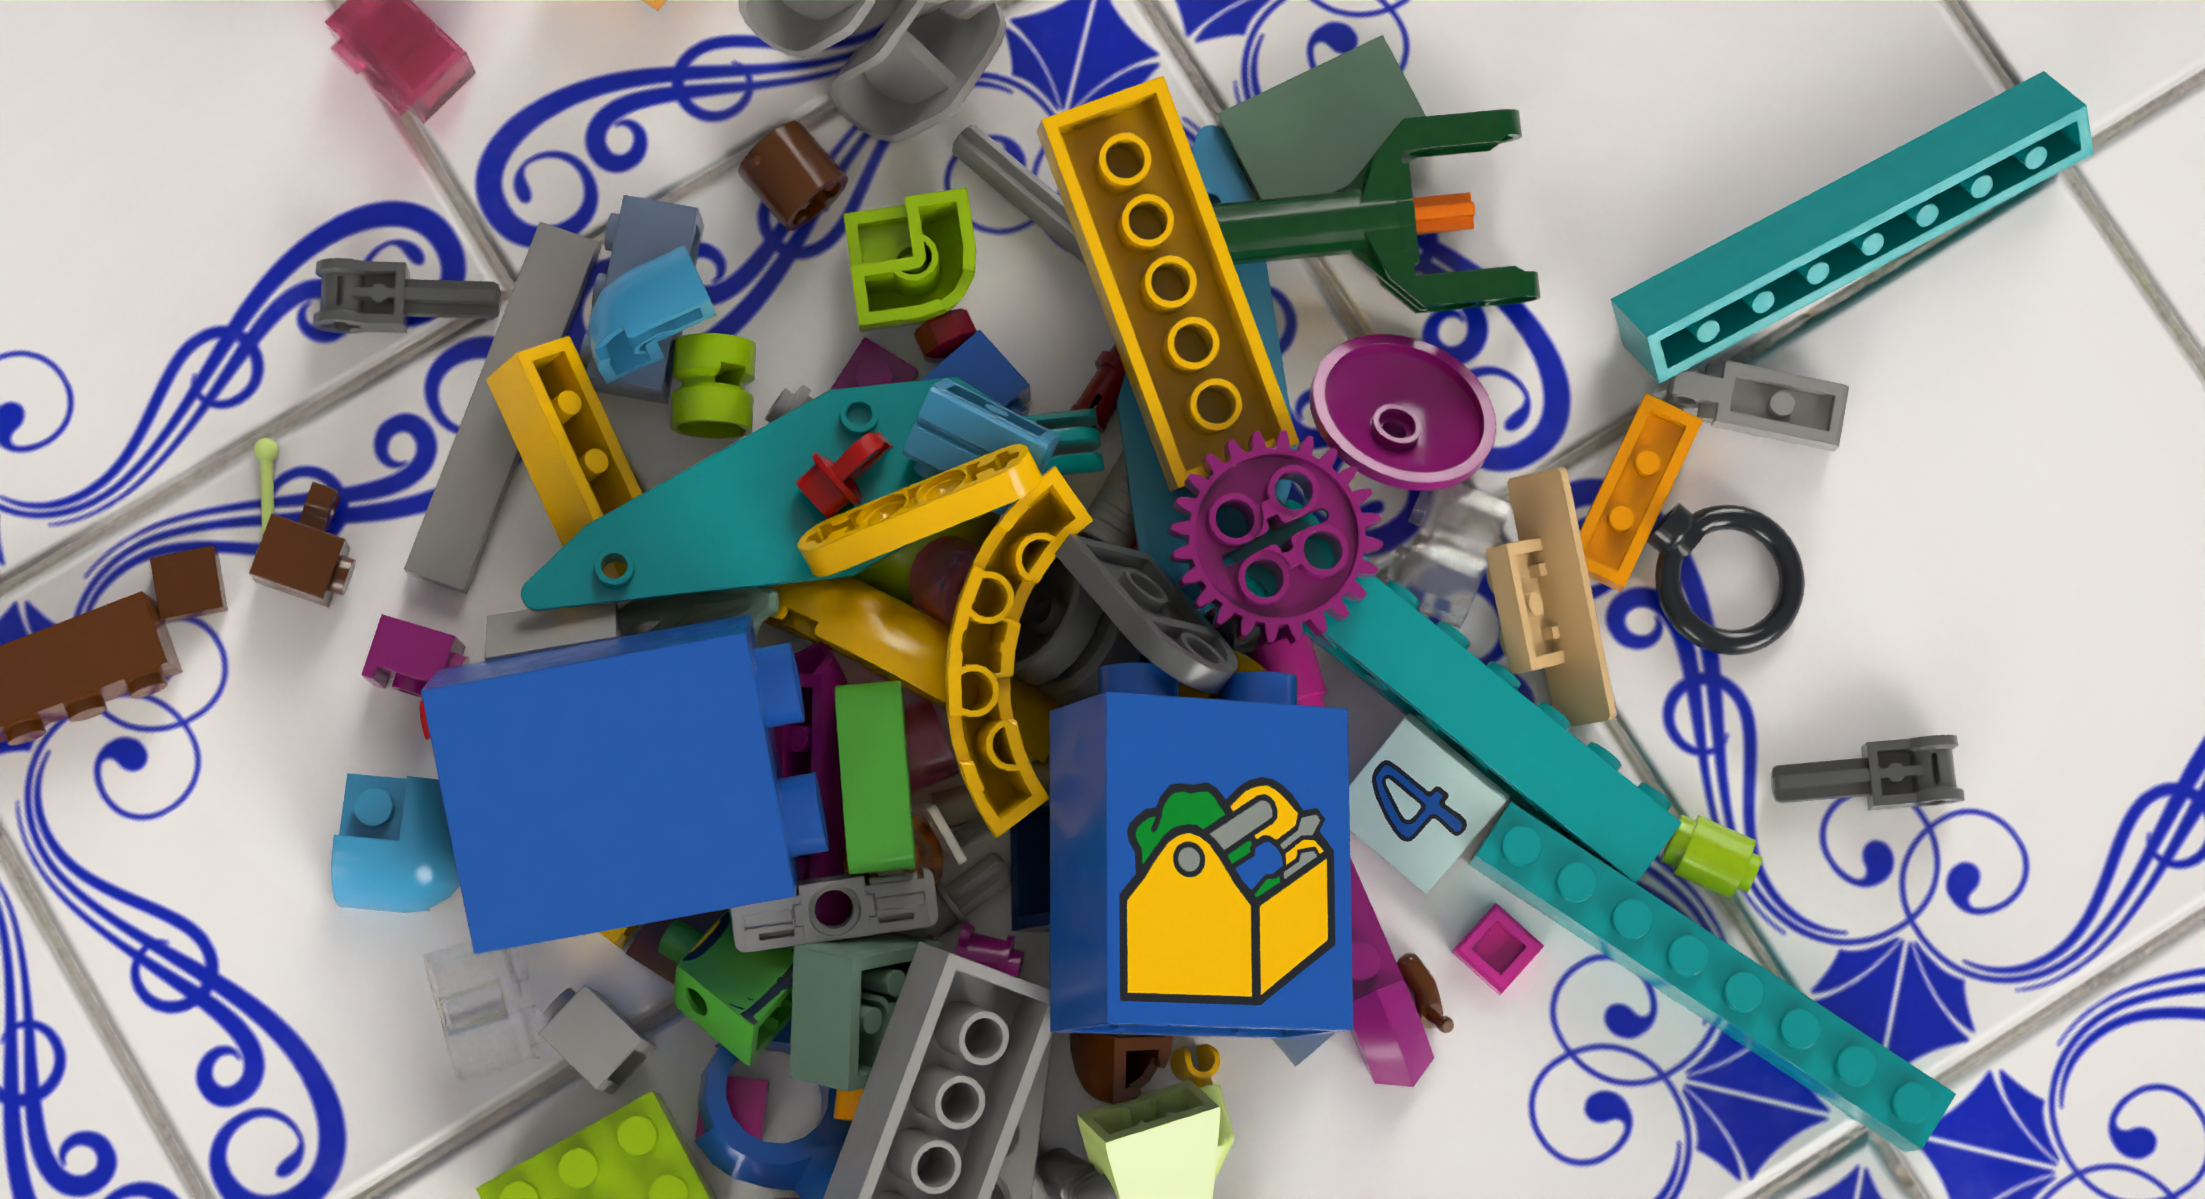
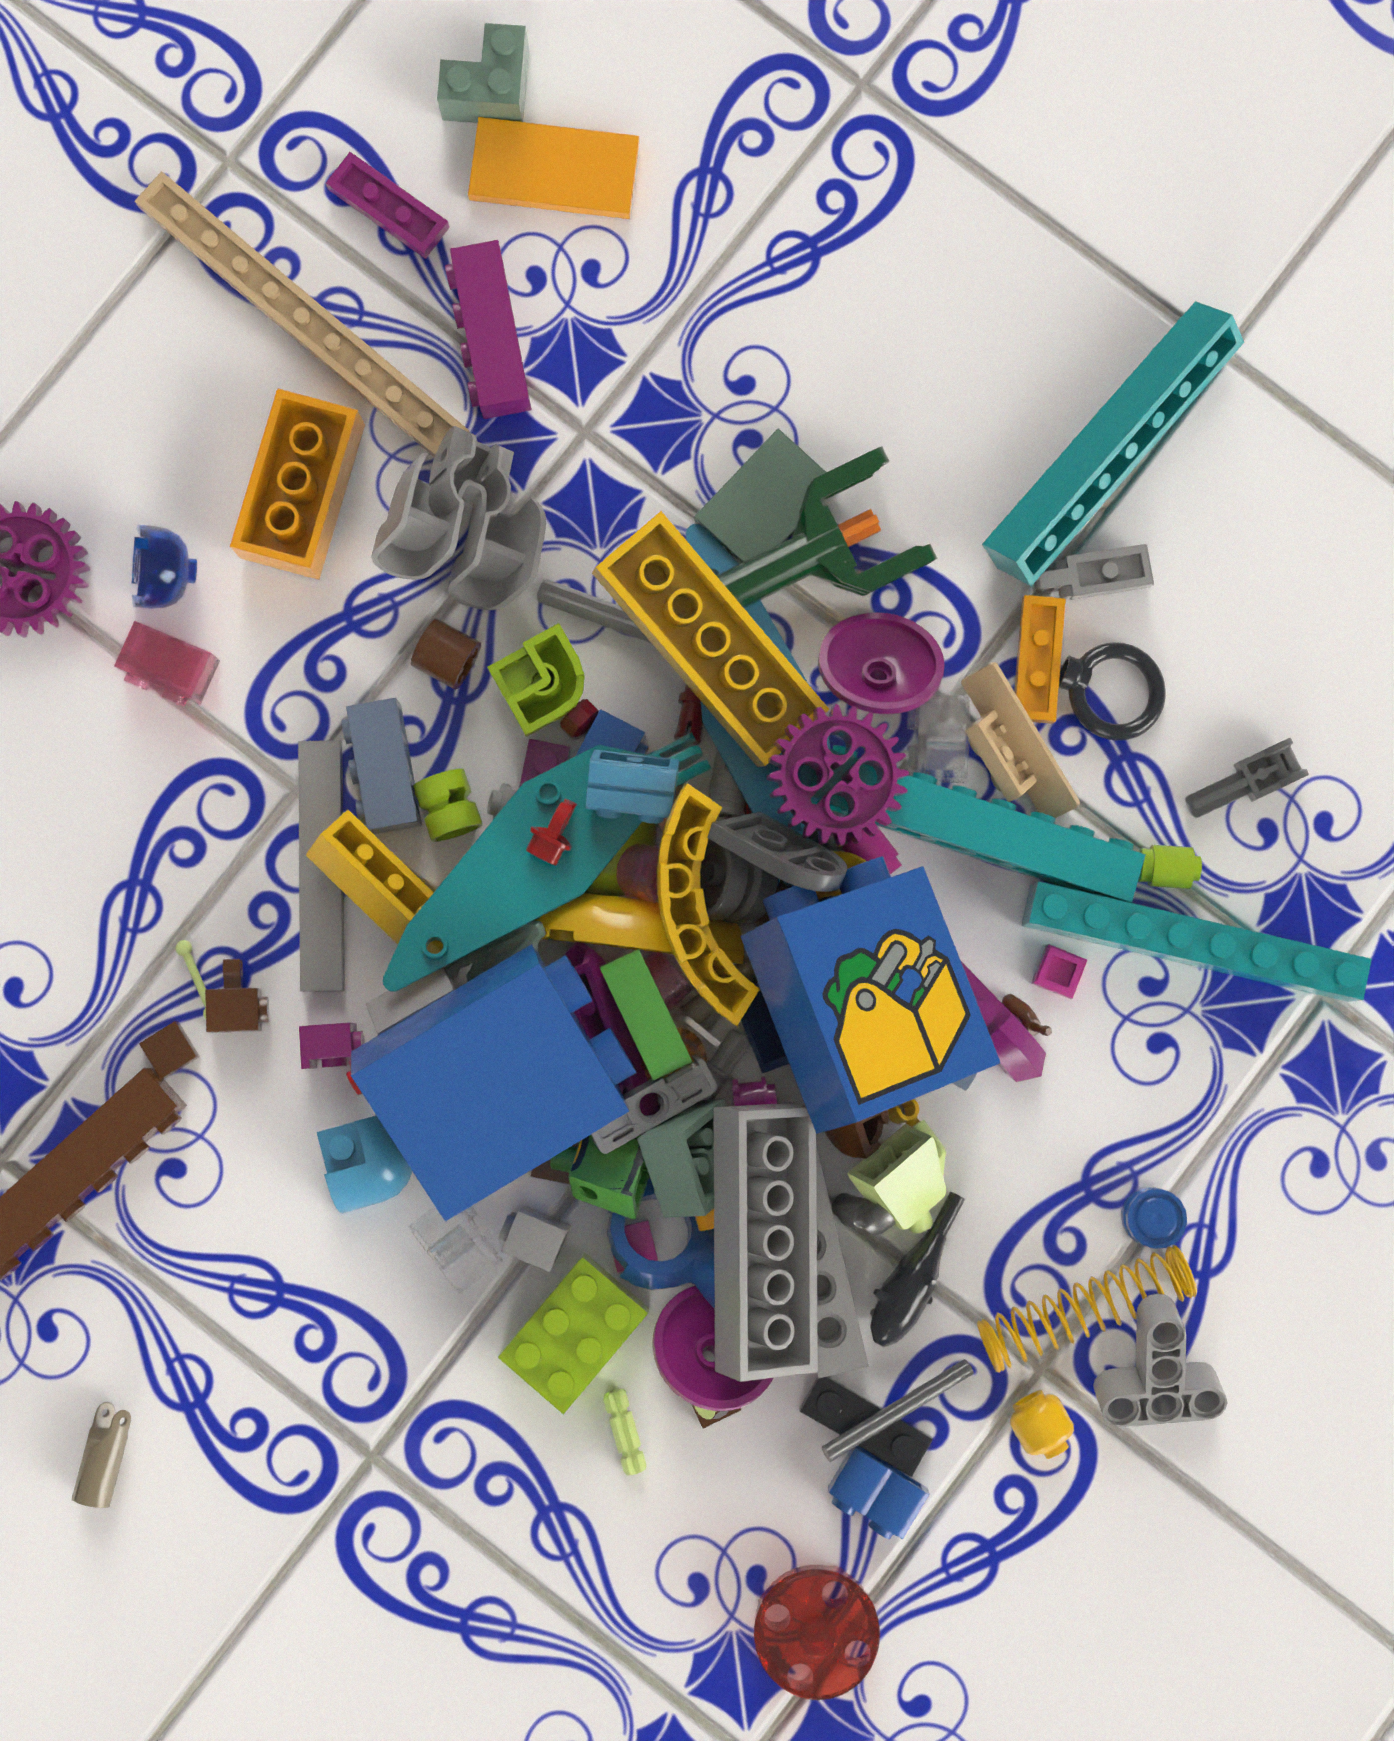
camera: 20 degrees left, 5 degrees up
(382, 296) = (219, 824): dark grey connector -> none
(644, 309) = (390, 776): dark azure brick -> none
(920, 510) = (612, 840): yellow beam -> none
(1420, 803) = (983, 901): light aqua tile -> none

